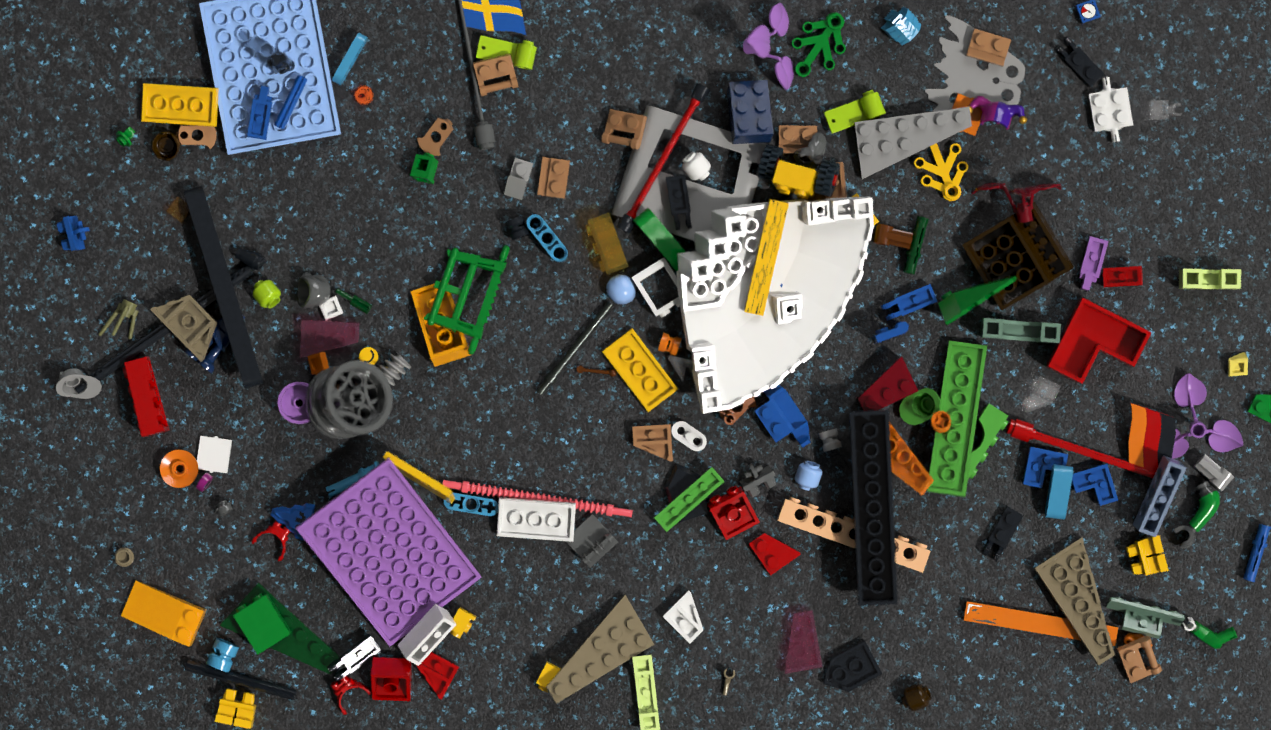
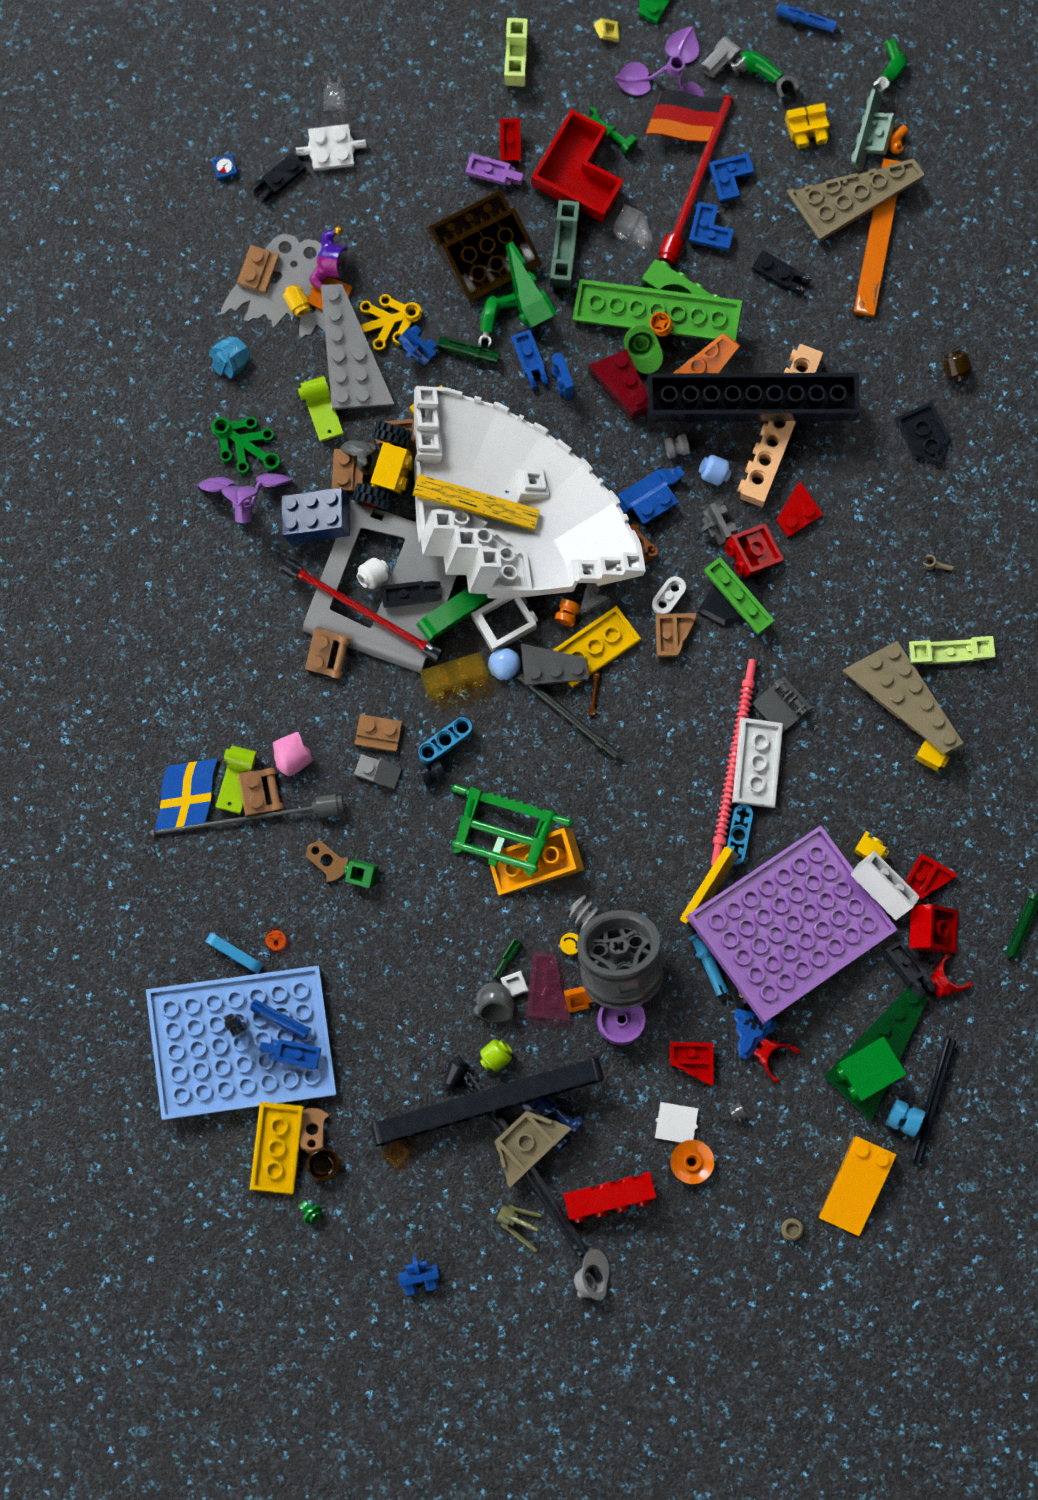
camera: 90 degrees left, 10 degrees down
(204, 482) = (708, 1133): magenta tile -> none
(244, 708) = (967, 1095): yellow hips -> none
(269, 468) = (694, 1059): none -> red wing
(529, 100) = (291, 754): none -> bright pink piece
(618, 330) = (551, 667): none -> dark grey wing
(684, 617) = (868, 607): white wing -> none
(803, 644) = (898, 482): clear pink wing -> none
(888, 236) = (457, 376): reddish brown piece -> none
(915, 196) = (416, 346): none -> blue hips
(952, 264) = (490, 312): none -> green arm
(957, 84) = (296, 300): none -> yellow brick
(1023, 209) = (435, 233): dark red plant -> none
(1058, 491) = (738, 211): dark azure beam -> none
(1123, 386) = (627, 145): none -> green piece
(1133, 662) = (921, 143): medium nougat plate -> none
(1159, 496) = (745, 108): sand blue brick -> none

